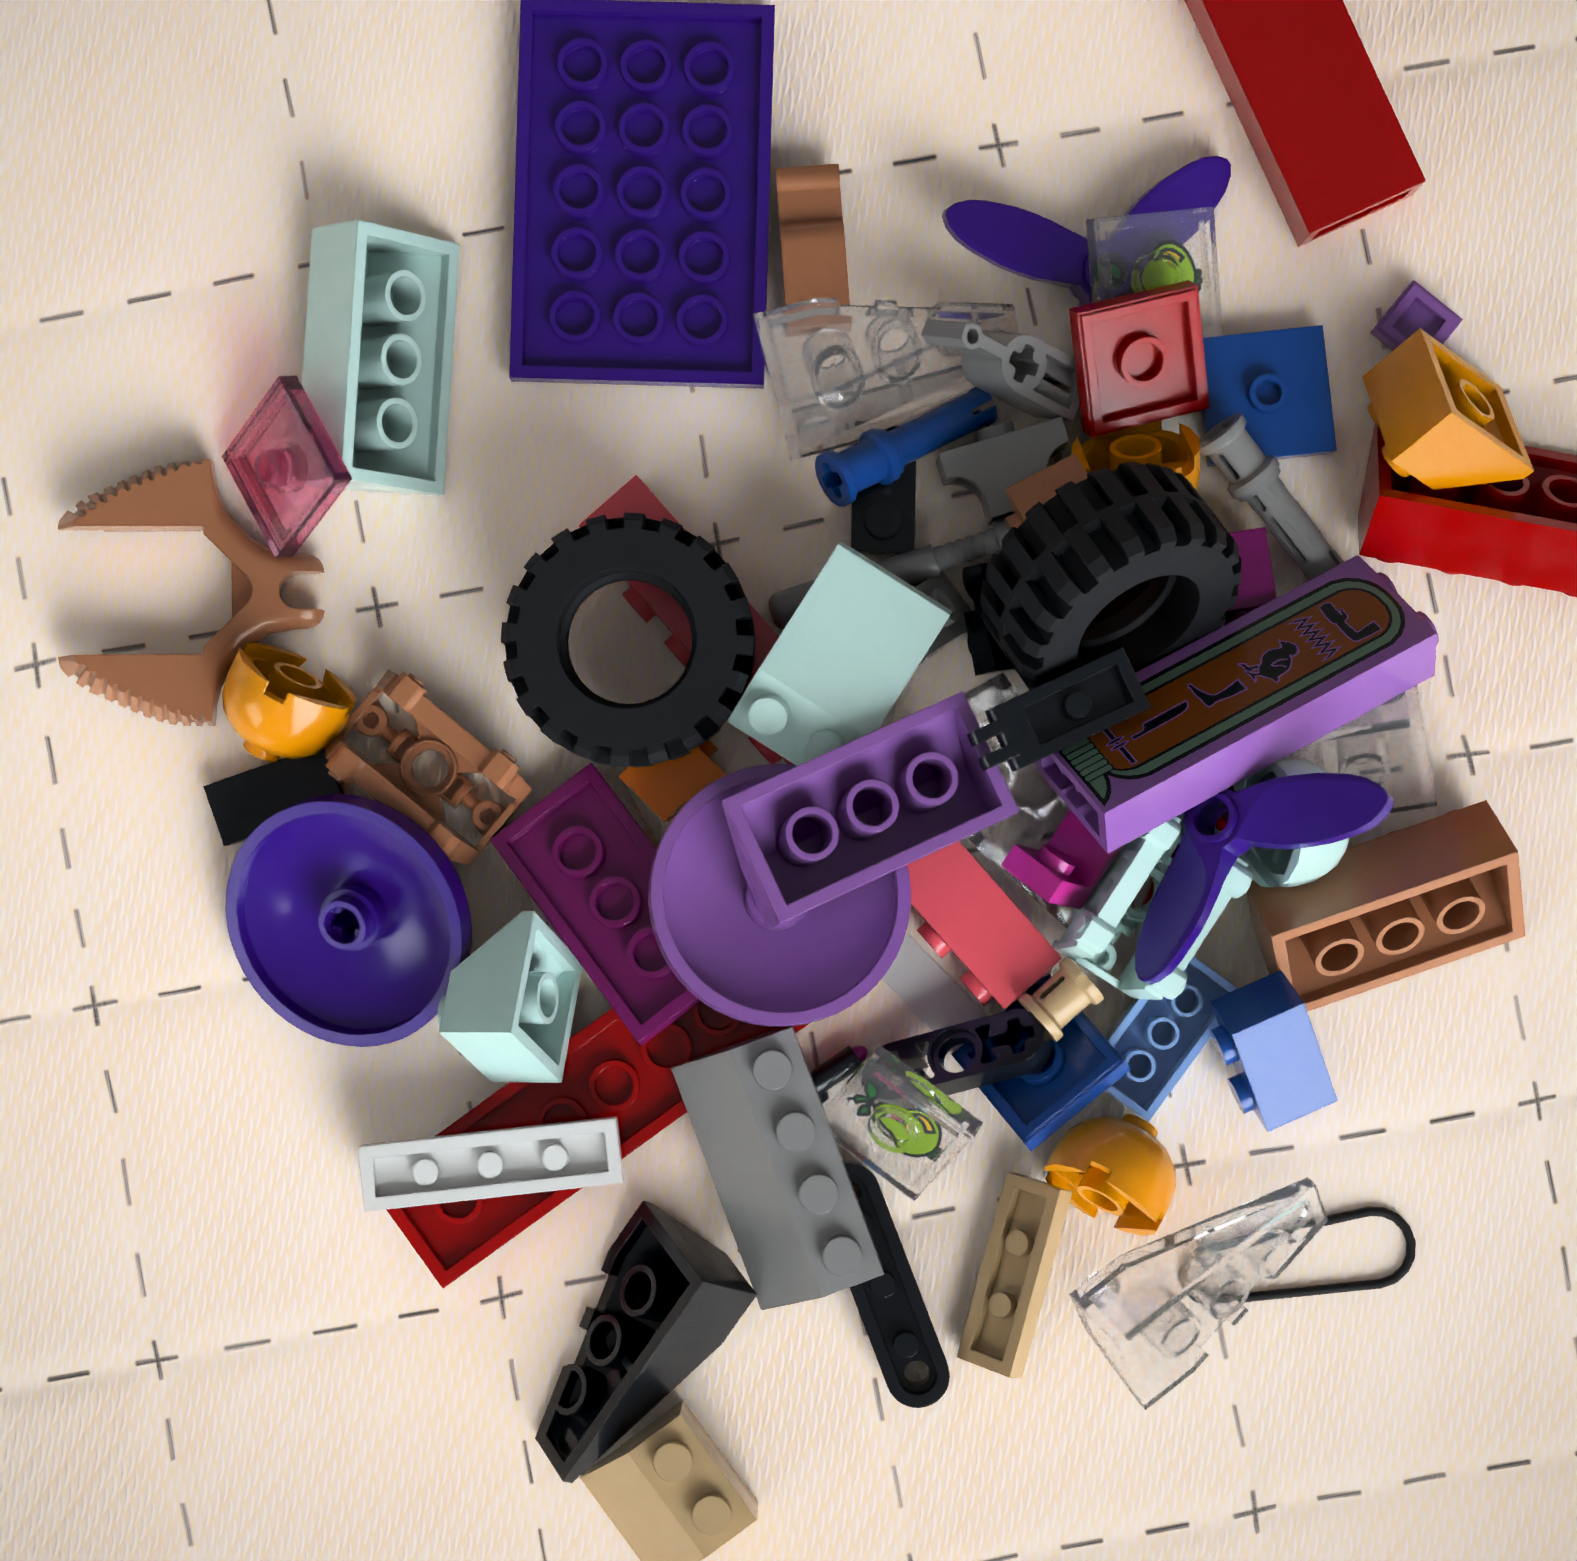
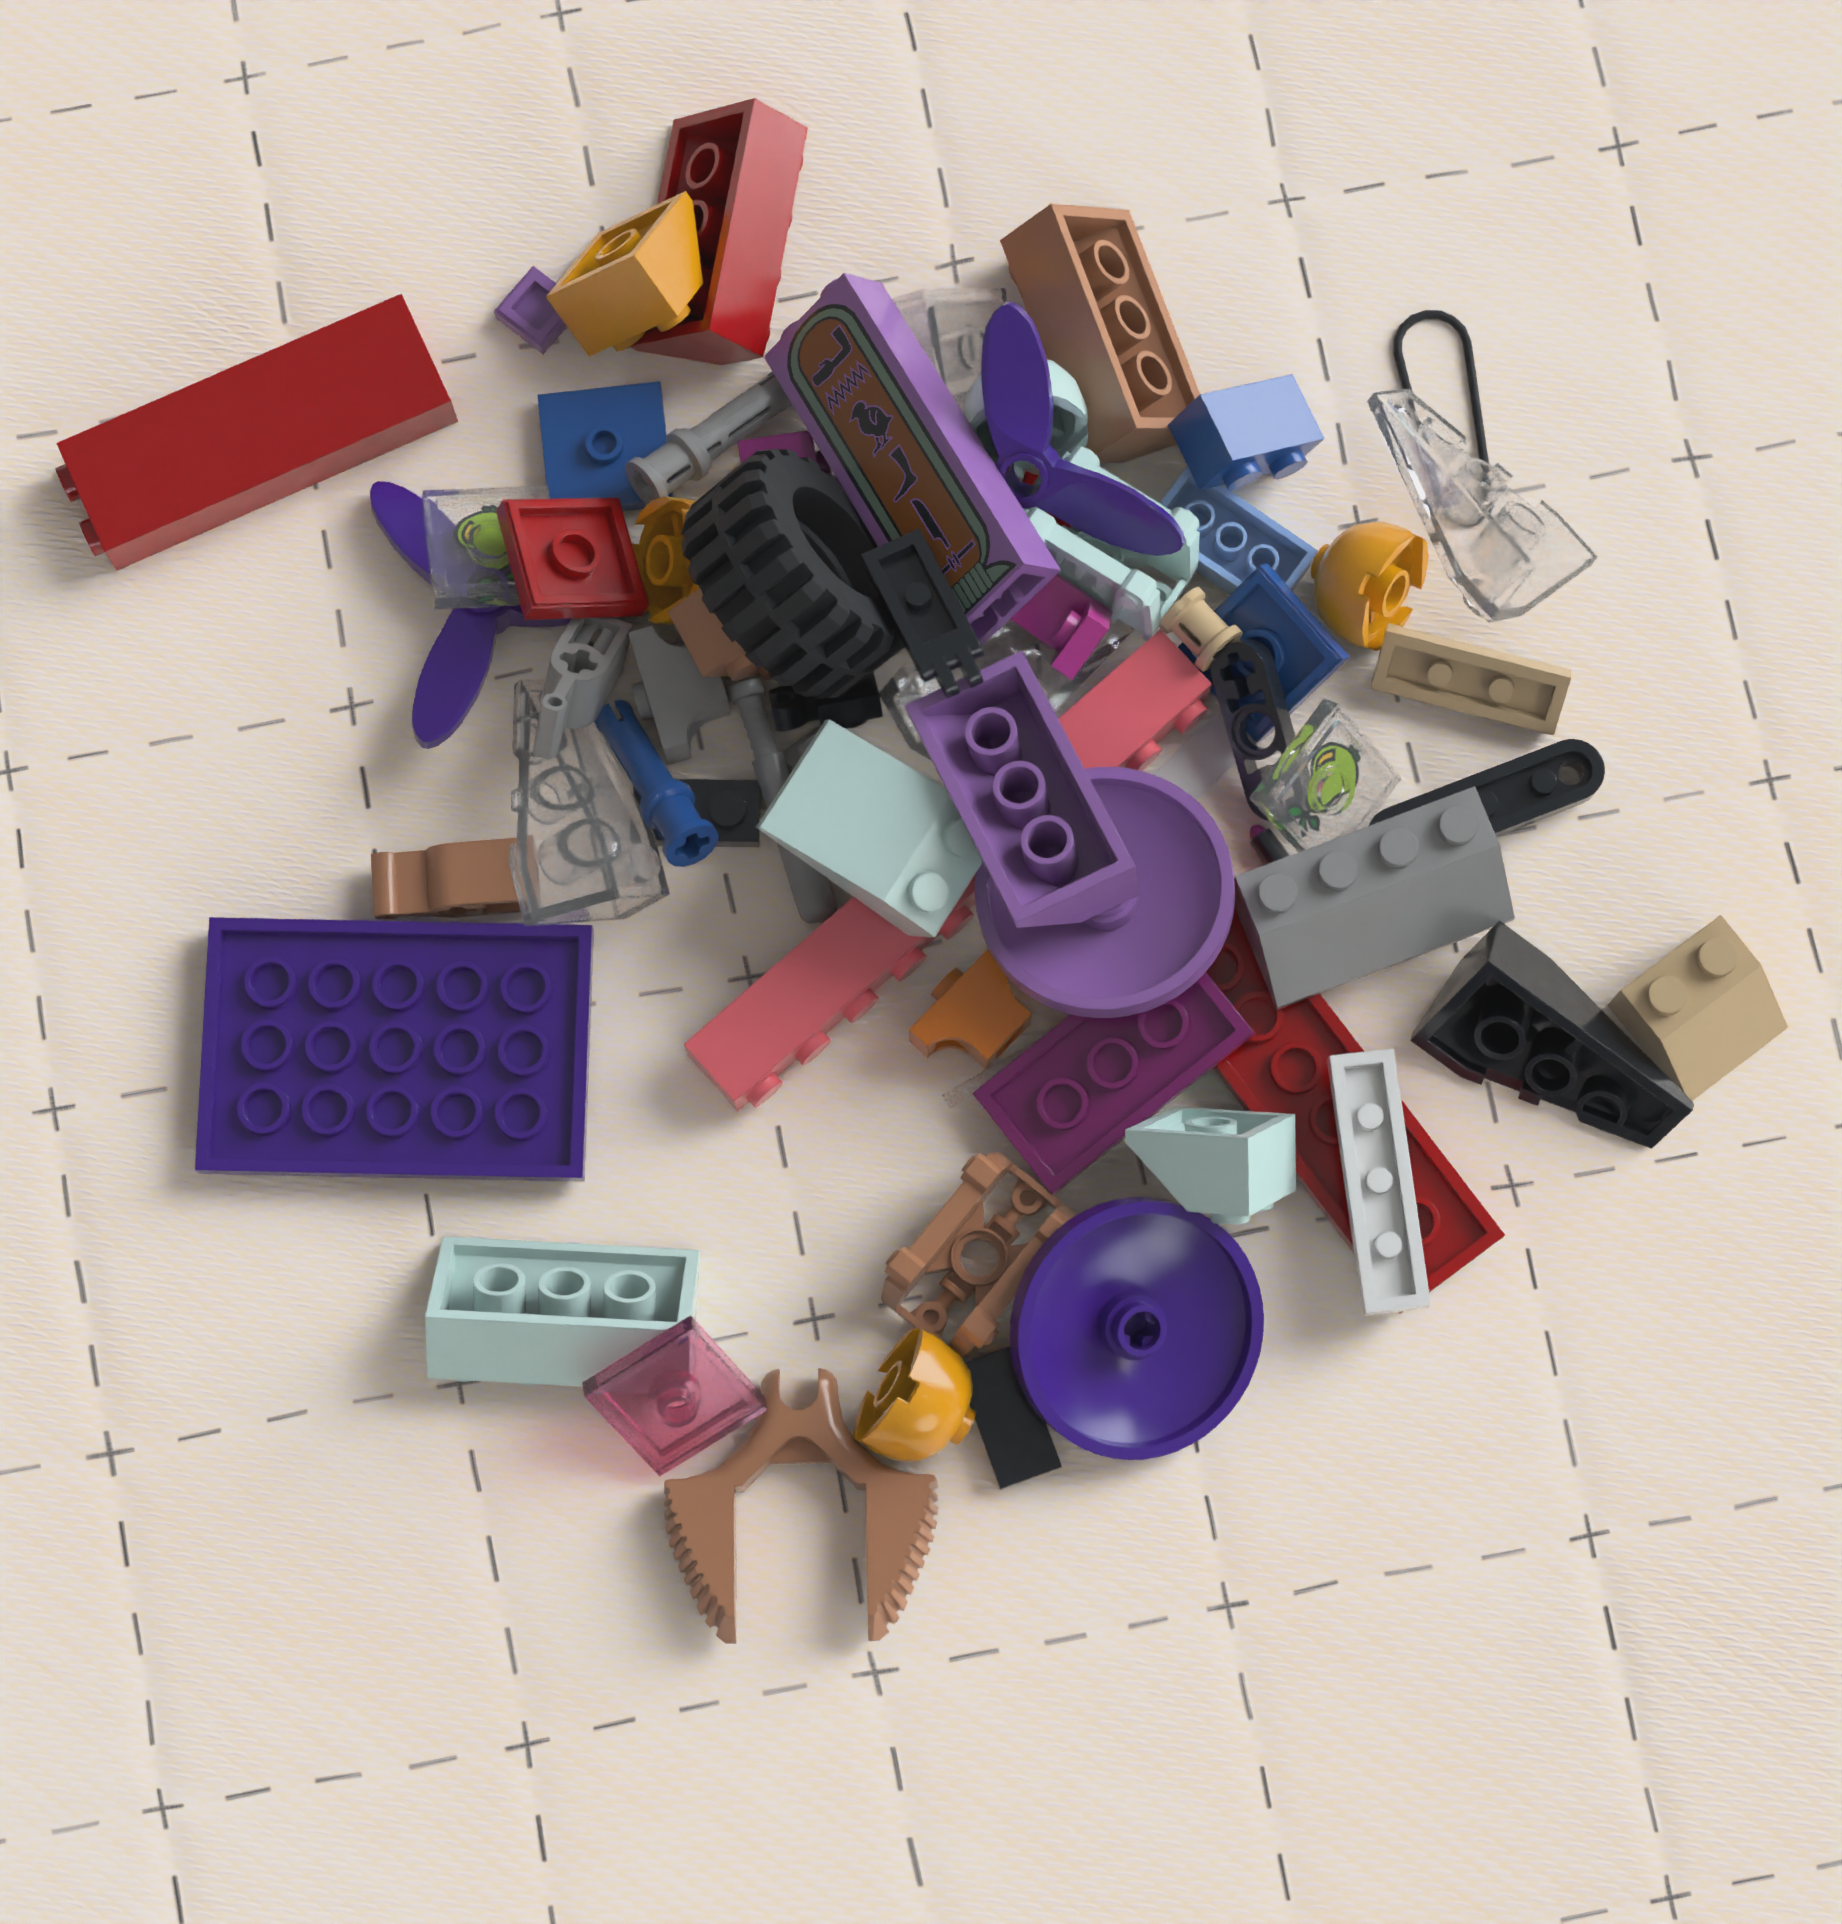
camera: 90 degrees left, 10 degrees down
(611, 553) = (839, 950): black tyre -> none

